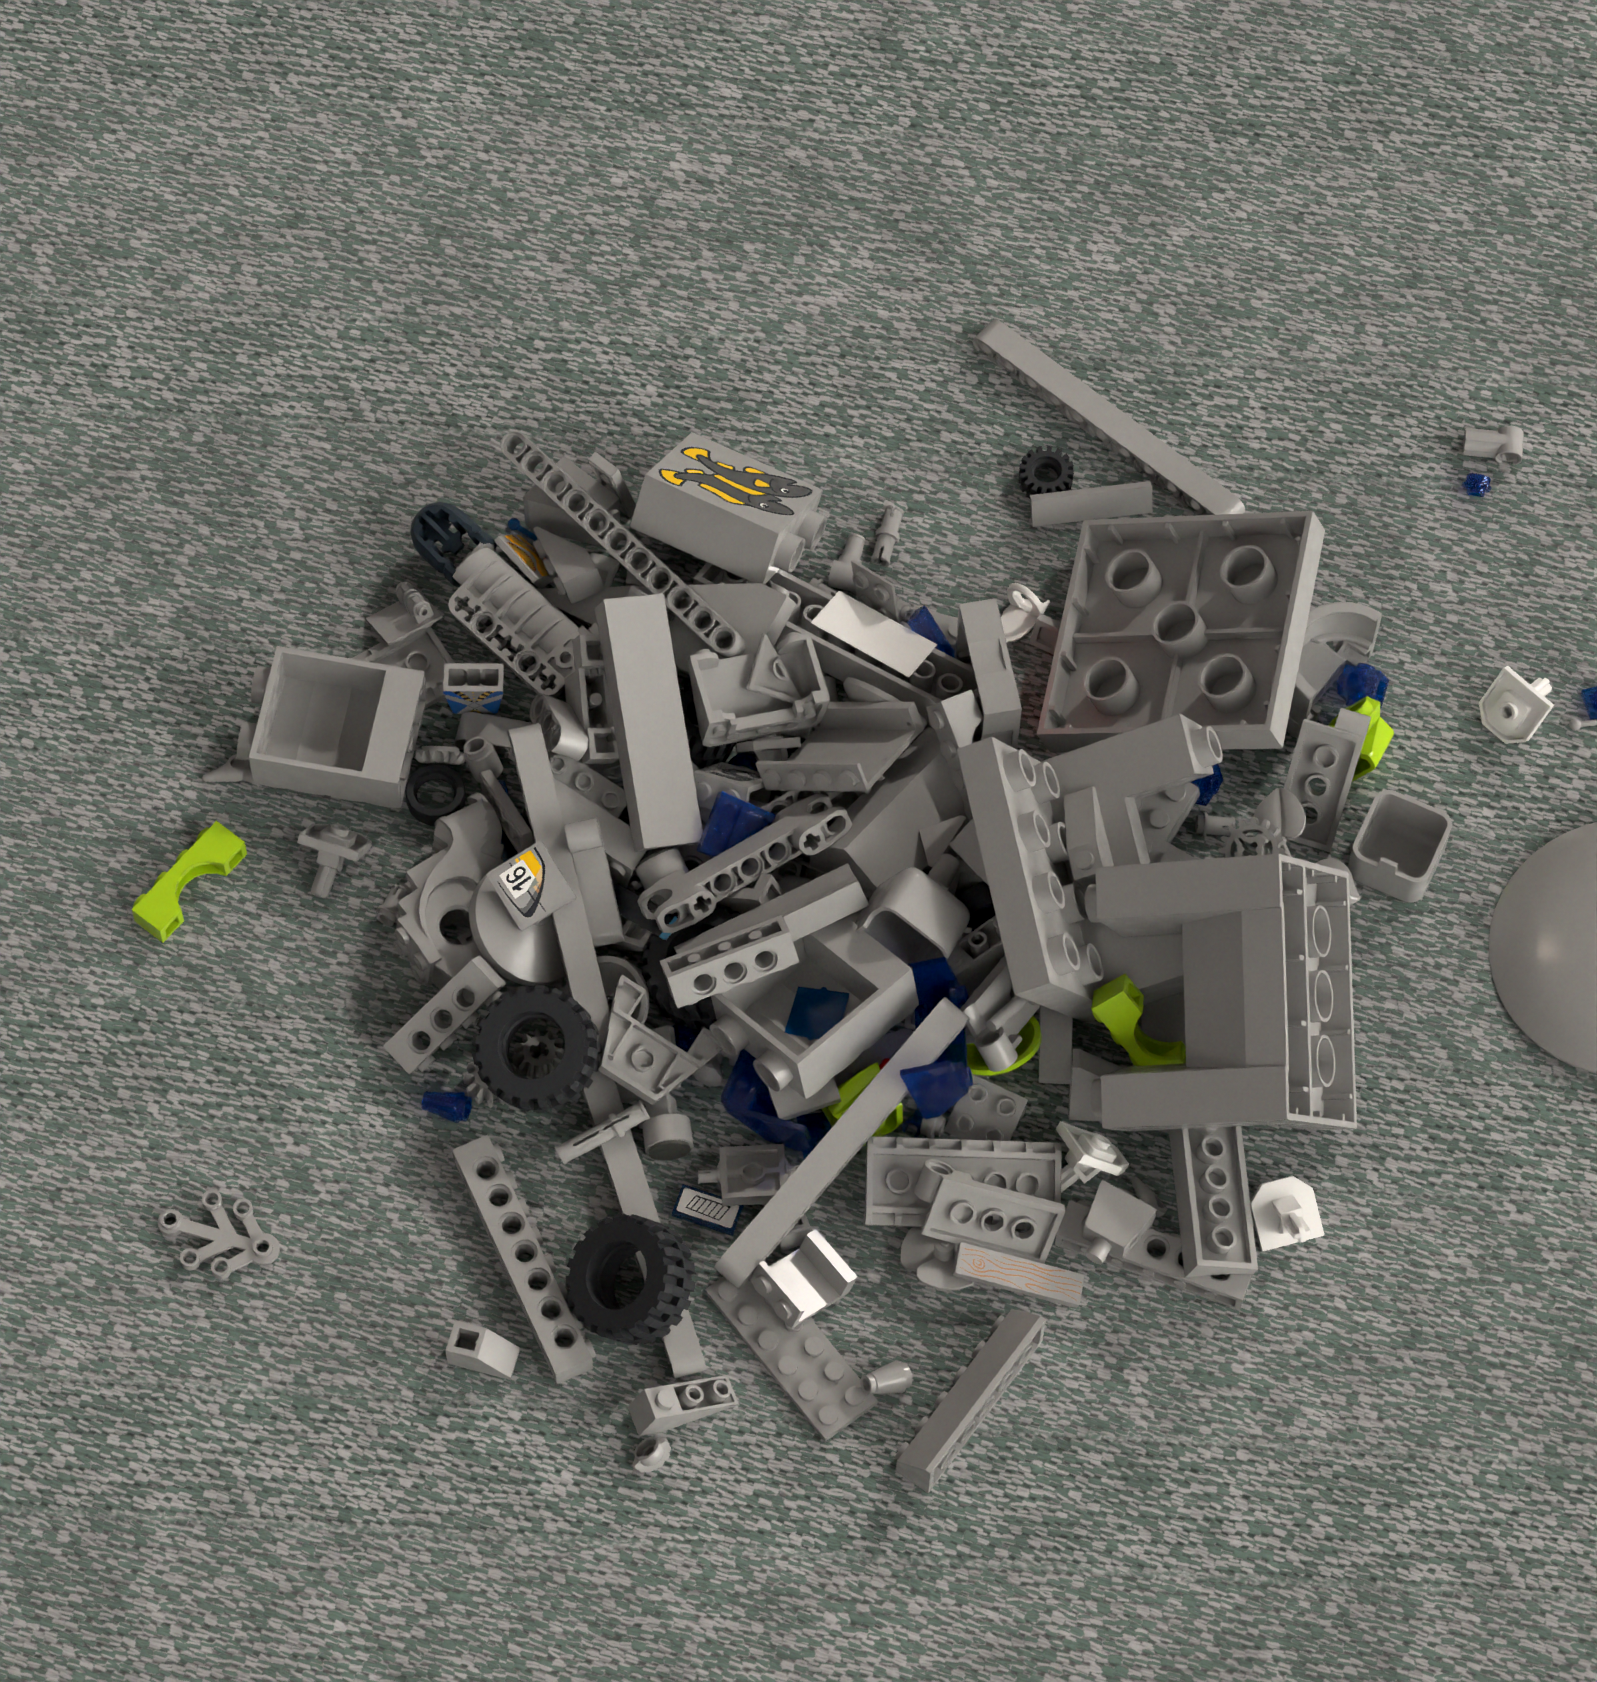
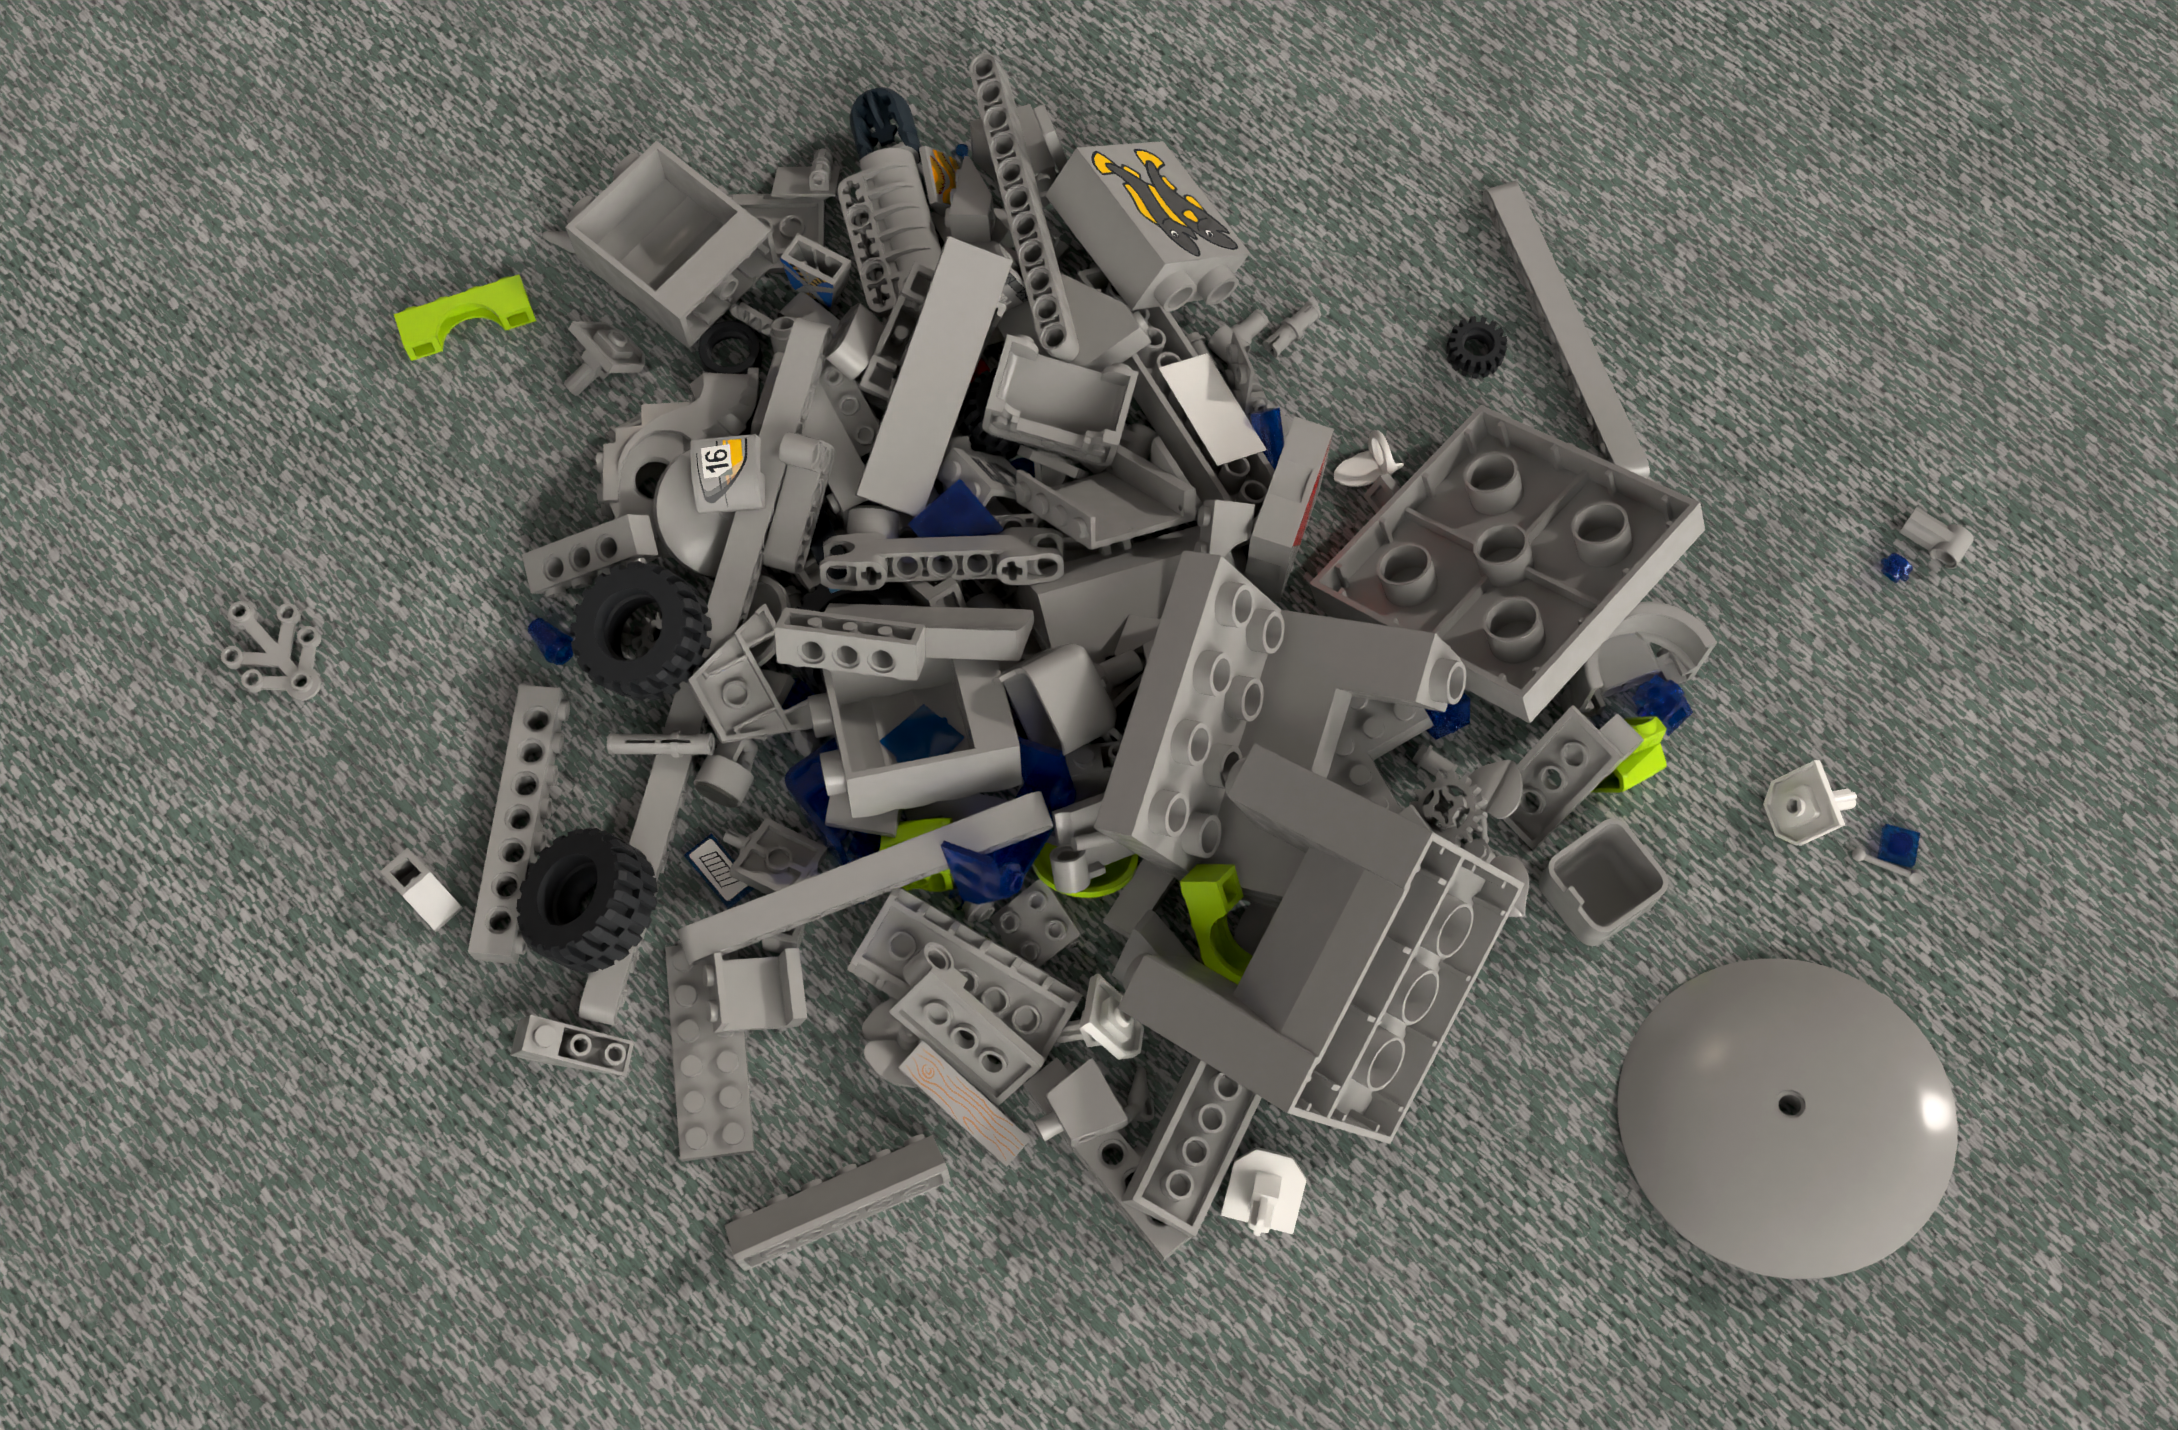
camera: 30 degrees right, 5 degrees up
(654, 1460) = (504, 1085): light grey piece -> none
(770, 675) = (1081, 394): light grey tile -> none
(888, 1379) = (773, 1135): light grey cone -> none
(1085, 835) = (1276, 707): light grey slope -> none
(1091, 503) = (1502, 395): light grey tile -> none

